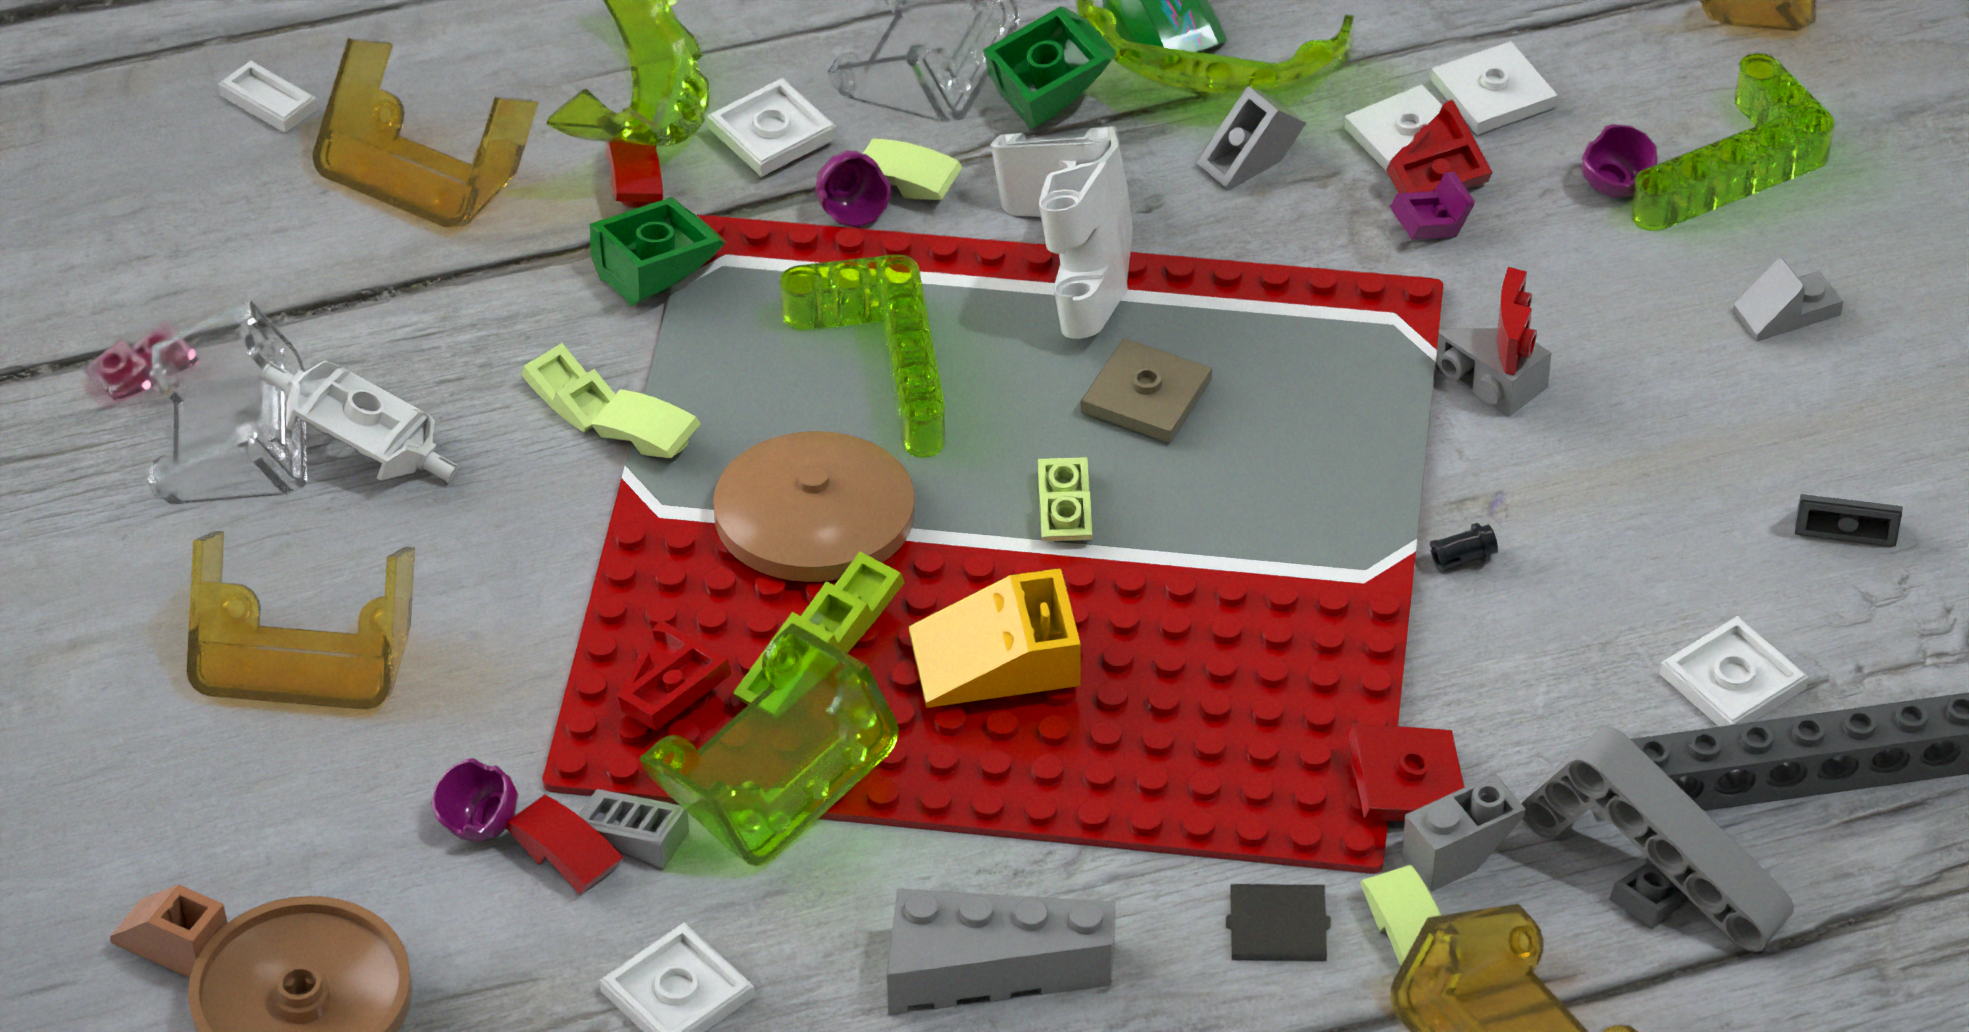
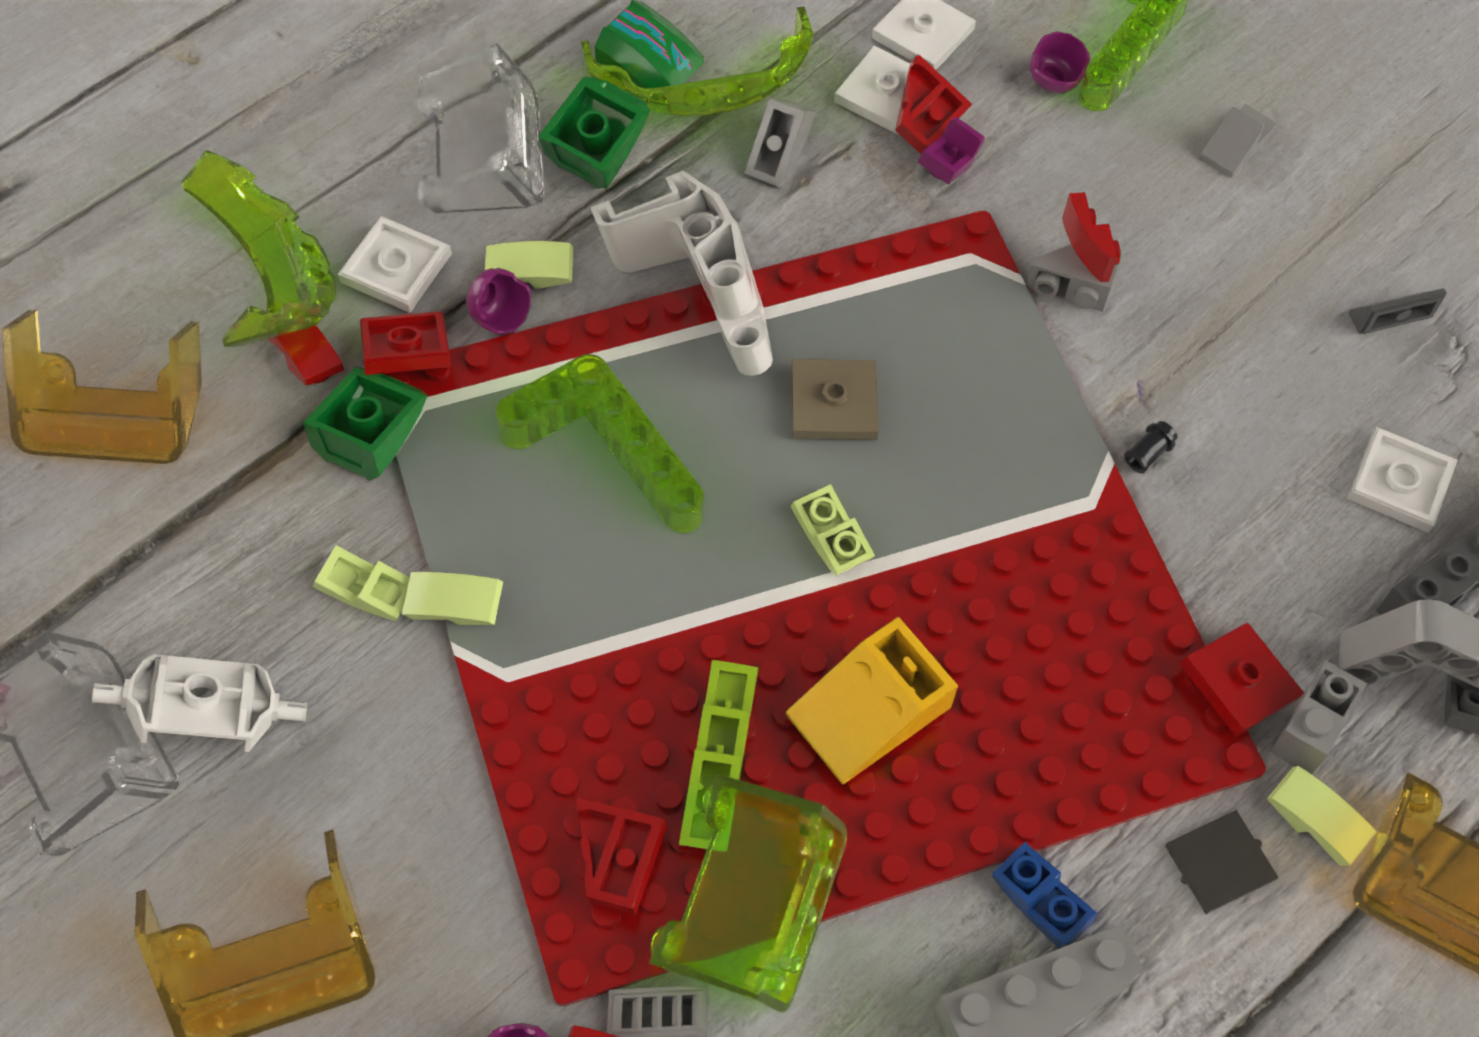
camera: 30 degrees left, 15 degrees up
(735, 194) = (404, 343): none -> red plate
(812, 503) = (636, 622): medium nougat dish -> none
(1066, 863) = (1042, 897): none -> blue slope

